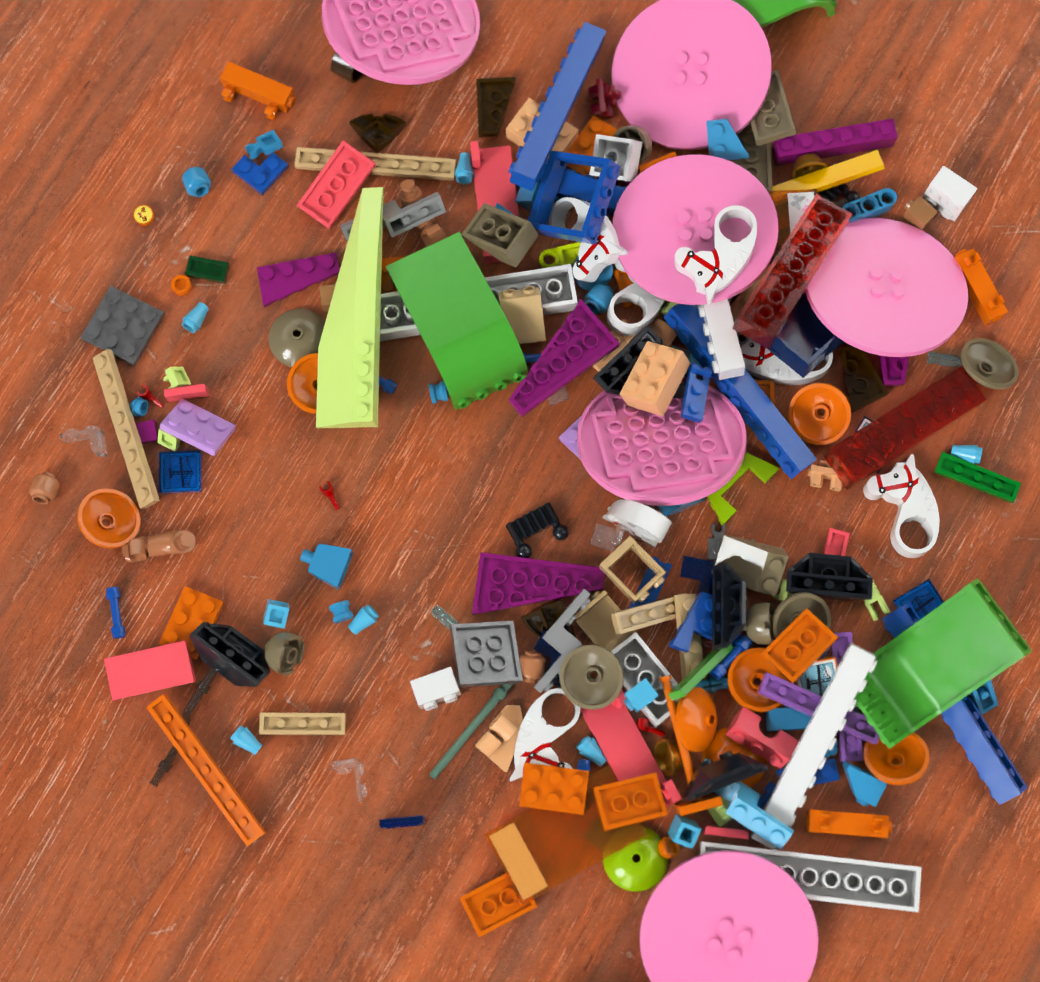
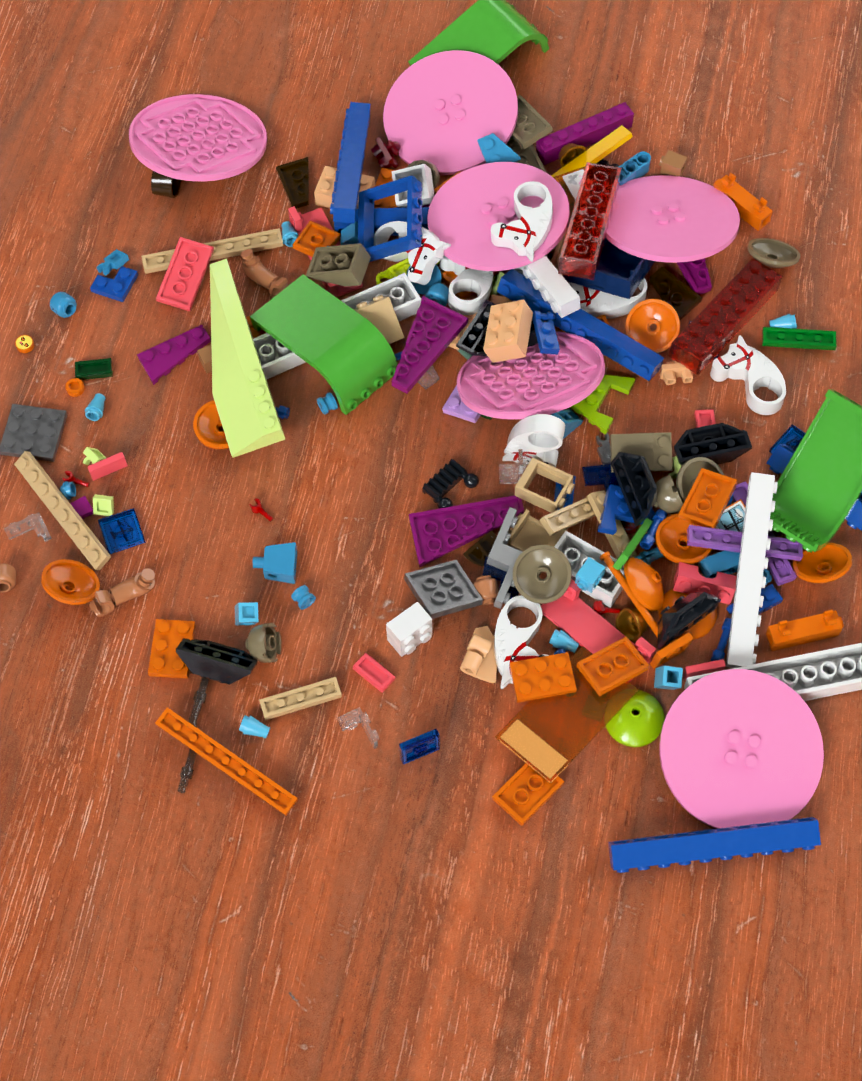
camera: 20 degrees left, 15 degrees down
(113, 594) = (106, 673): blue bar -> none
(149, 670) = (147, 696): coral tile -> none
(197, 427) = (126, 488): lavender plate -> none
(256, 87) = (92, 222): orange brick -> none
(281, 336) = (182, 405): dark tan dish -> none
(363, 619) = (325, 597): medium azure cone -> none
(377, 130) = (206, 227): dark brown brick -> none
(386, 718) = (373, 672): none -> coral tile
(400, 220) = (250, 281): light grey bracket -> none
(445, 618) = (396, 576): clear light blue axle -> none
(490, 186) = (315, 236): none -> orange tile
(499, 694) = (465, 623): sand green bar -> none
(668, 848) = (660, 697): orange tile -> none
(718, 813) = (693, 655): yellowish green tile -> none
(744, 810) = (717, 641): medium azure bracket -> none
(863, 784) = (804, 593): dark azure slope -> none
(876, 597) = (753, 452): yellowish green hinge -> none
(944, 359) = (735, 262): clear light blue axle -> none
(949, 193) = (691, 141): white brick -> none

